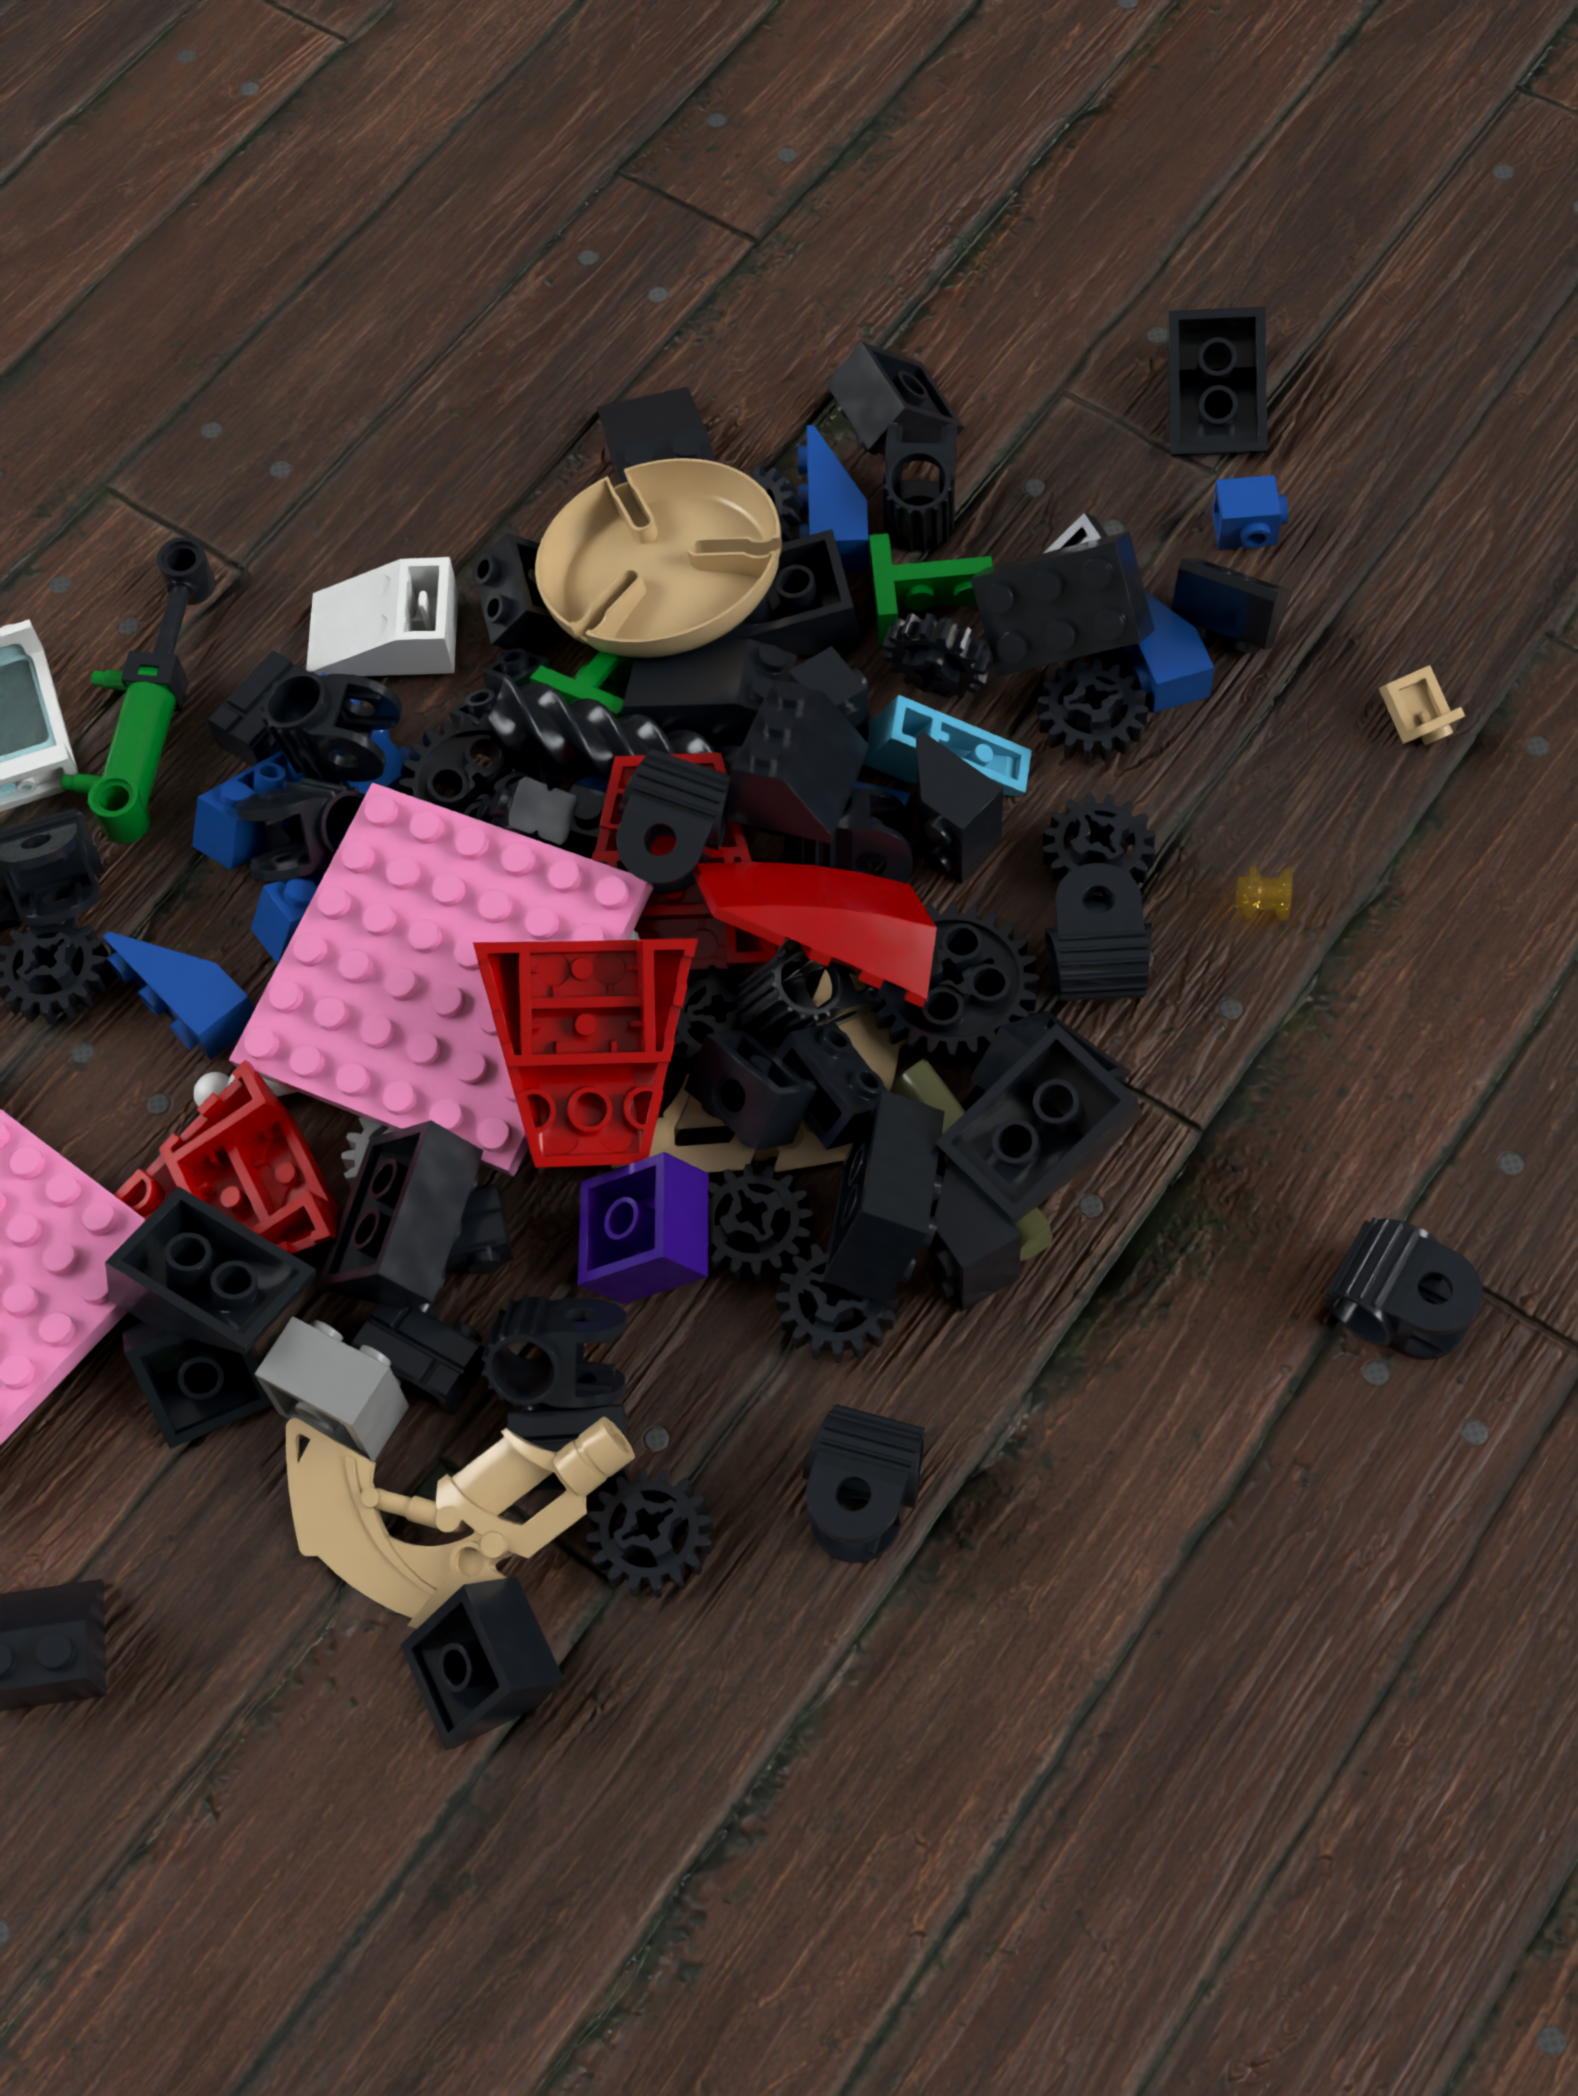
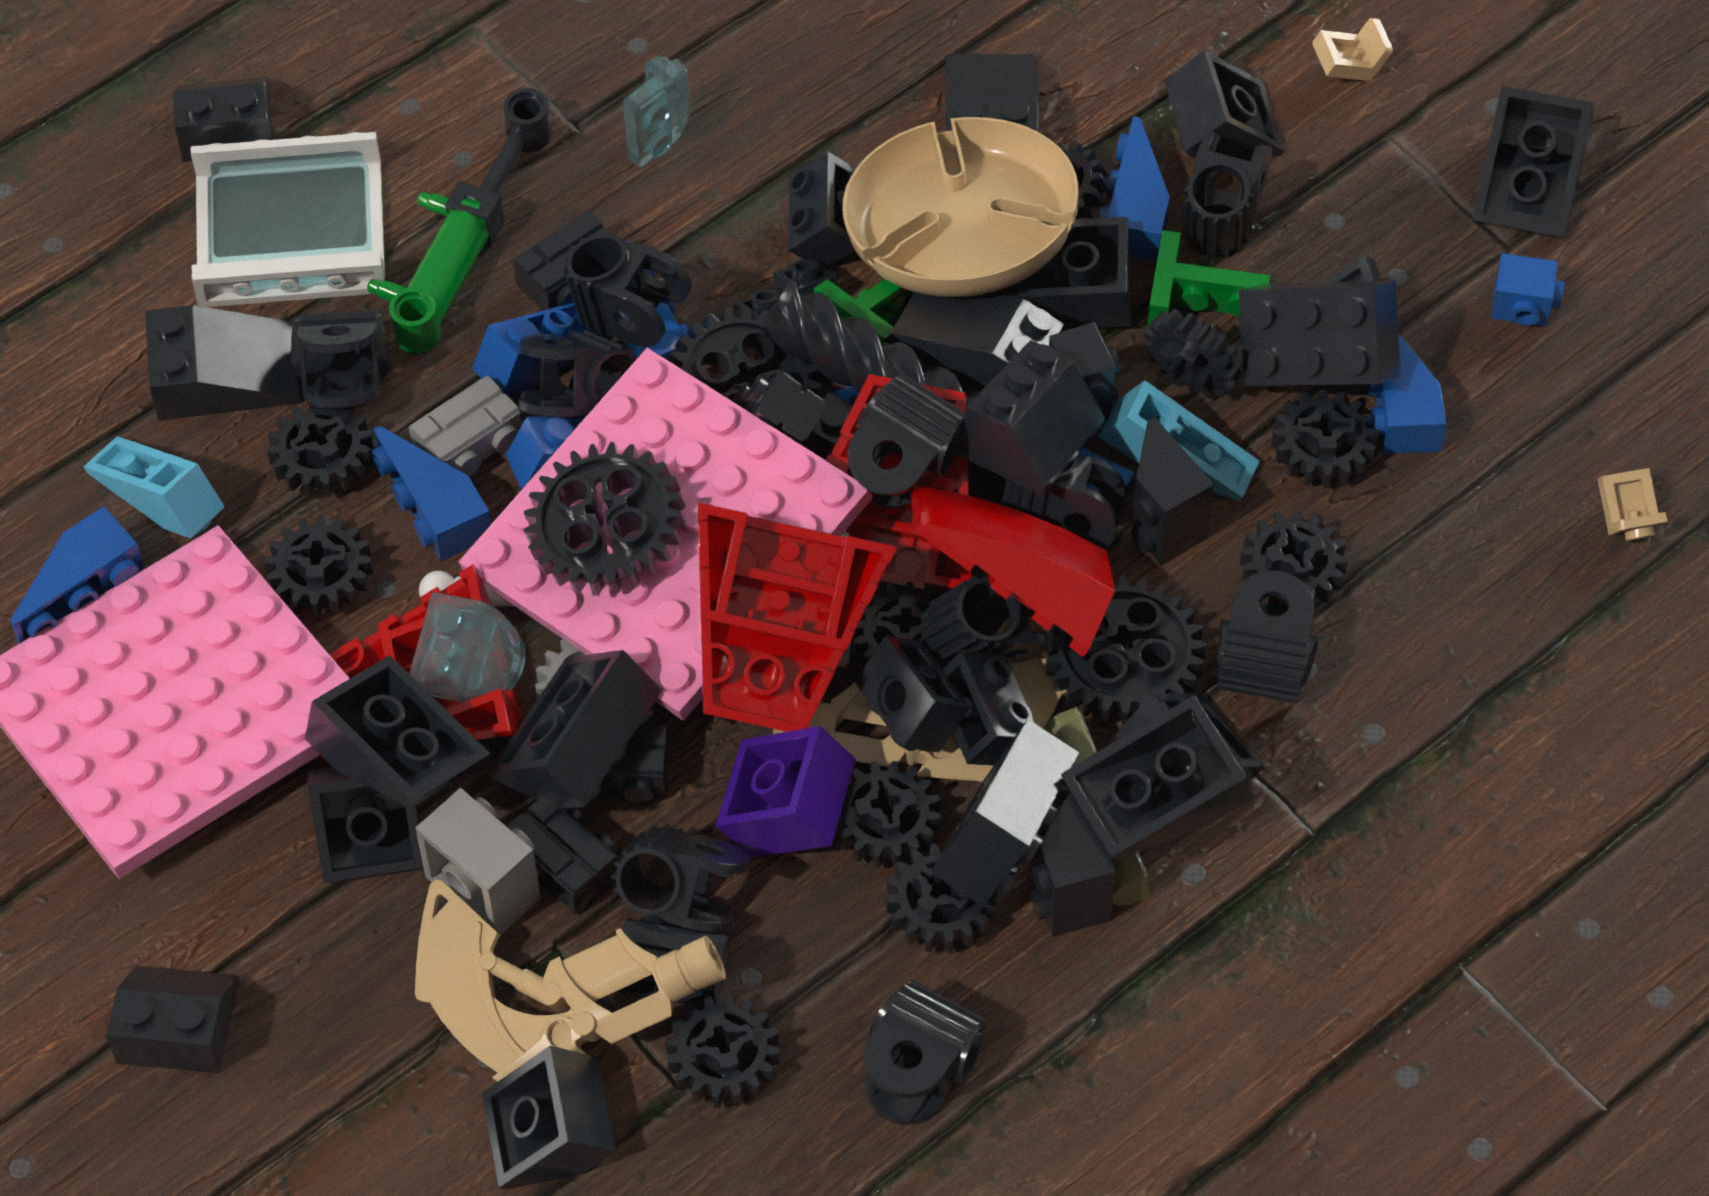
camera: 10 degrees right, 5 degrees down
(84, 1099) = (319, 565): none -> black gear
(204, 909) = (469, 427): none -> light grey brick
(261, 1156) = (466, 649): none -> clear light blue slope
(317, 529) = (657, 110): none -> clear light blue slope
(329, 1001) = (560, 528): none -> black gear
(387, 621) = (699, 208): white slope -> none
(1007, 314) = (1353, 55): none -> tan bracket
(1229, 604) = (1479, 369): black slope -> none
(1264, 893) = (1429, 636): clear yellow wheel -> none
(1405, 1290) = (1450, 1004): black piece -> none

